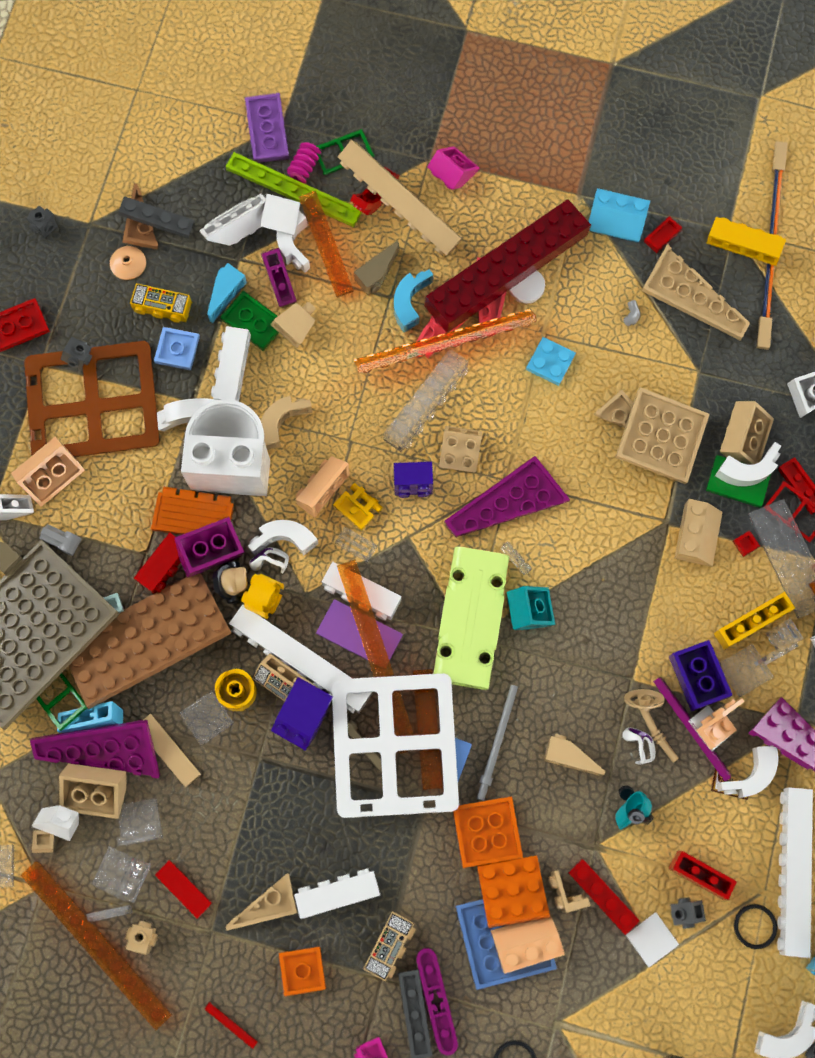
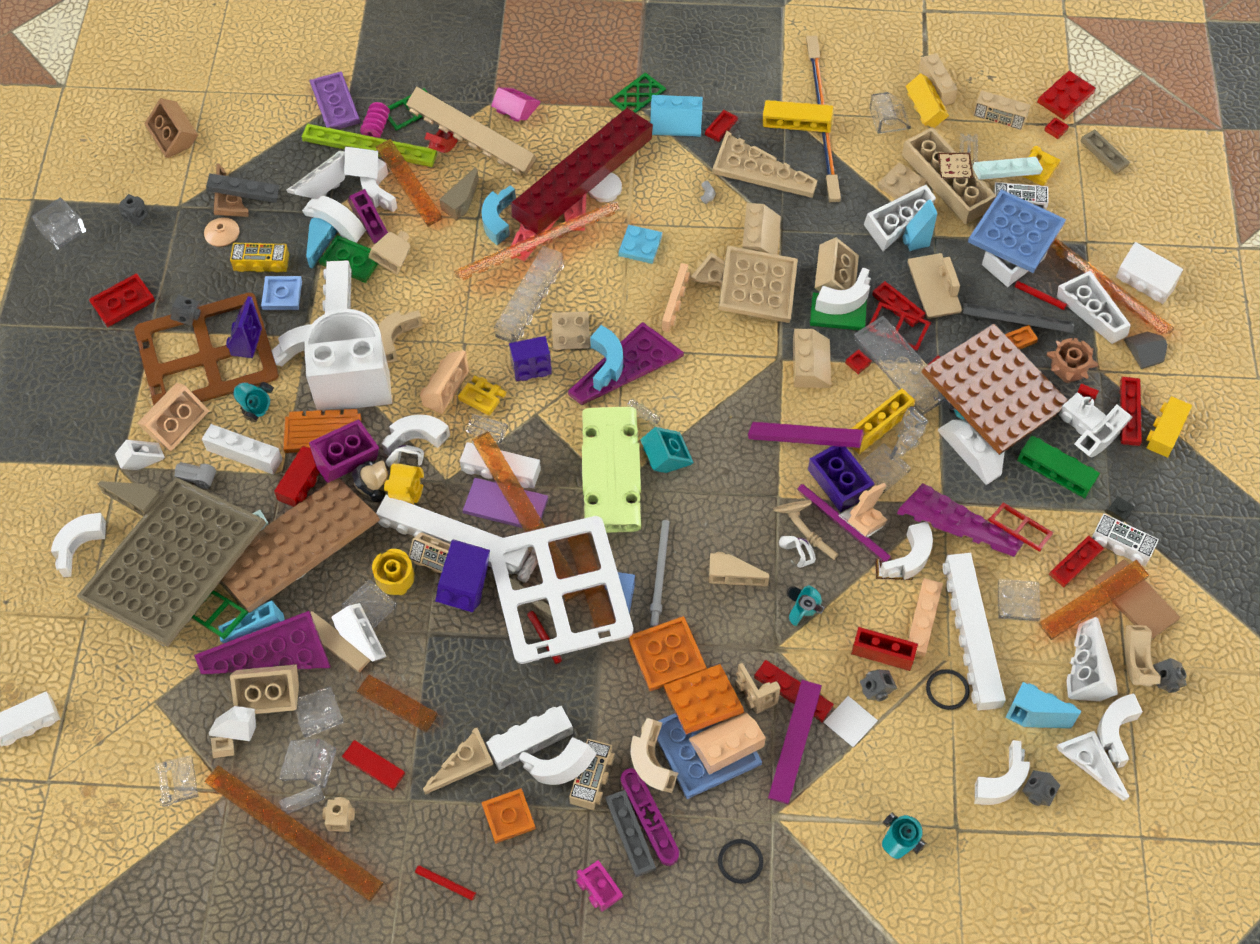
camera: 10 degrees left, 15 degrees down
(94, 130) = (170, 128): none -> medium nougat slope
(110, 521) = (242, 449): none -> white brick
(128, 470) = (253, 399): none -> teal cap
(132, 392) = (245, 331): none -> dark purple slope
(190, 746) = (357, 630): none -> white slope
(217, 828) = (397, 703): none -> clear orange plate
(244, 272) = (337, 215): none -> white arch
(367, 939) = (564, 767): none -> white arch
(368, 709) = (528, 567): none -> white axle
(368, 779) = (542, 633): none -> red bar
(444, 948) = (645, 760): none -> tan arch
(497, 484) = (609, 346): none -> medium azure arch
(571, 441) = (674, 304): none -> light nougat plate
(583, 165) = (623, 93): none -> green window
(593, 954) = (795, 742): none -> magenta tile
(675, 623) = (806, 434): none -> magenta tile
(678, 372) = (761, 229): none -> tan slope
(750, 843) = (925, 614): none -> light nougat plate

